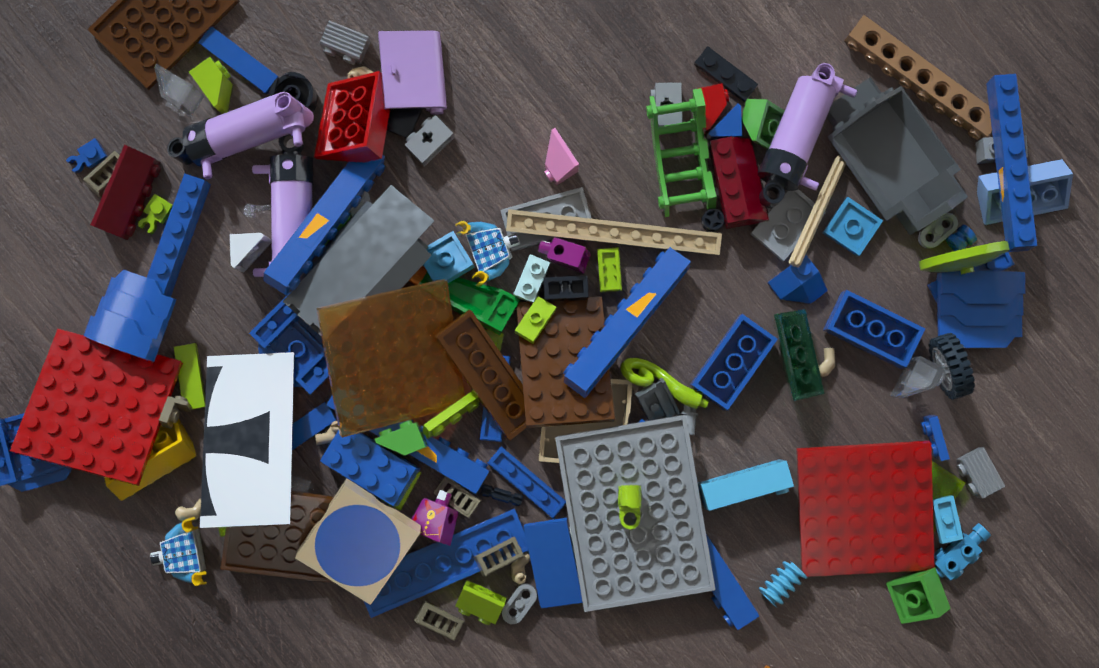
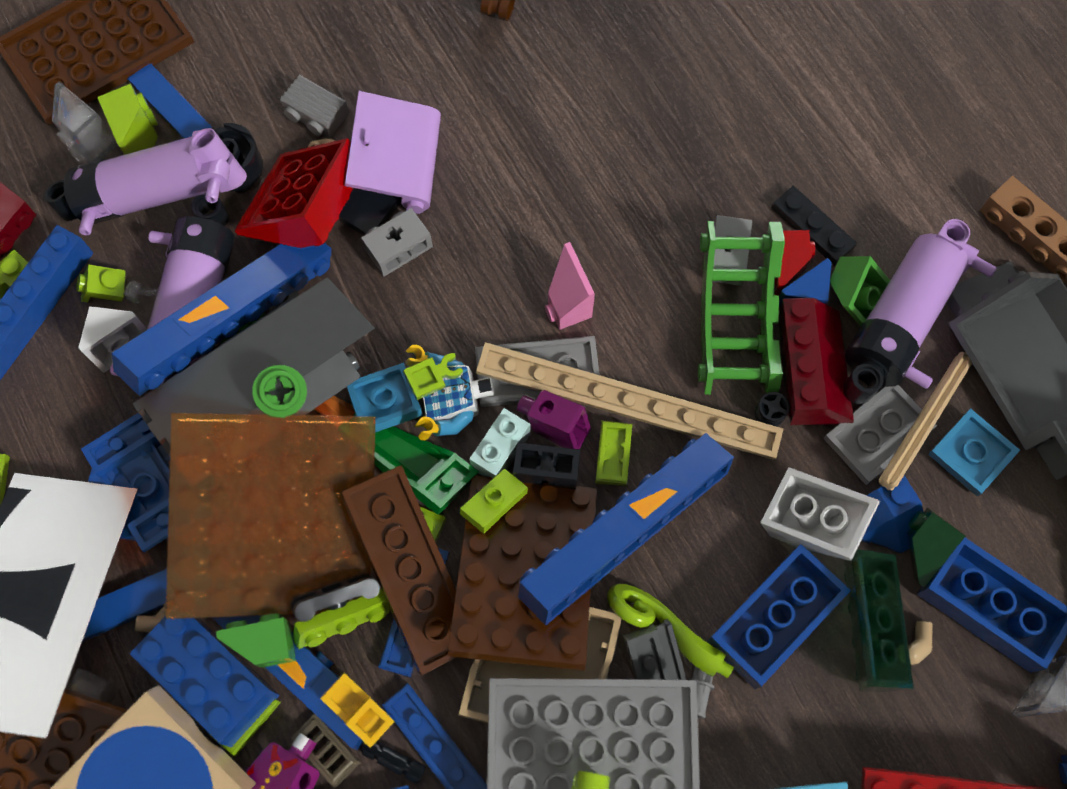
camera: 10 degrees right, 15 degrees down
(225, 209) = (101, 283): none -> lime bracket
(387, 269) = (266, 382): none -> bright green gear
(444, 401) = (333, 595): none -> black plate
(474, 243) = (428, 377): none -> lime plate
(474, 469) = (357, 709): none -> yellow slope
(751, 292) = (818, 515): none -> white slope
(828, 296) = (930, 544): none -> dark green slope

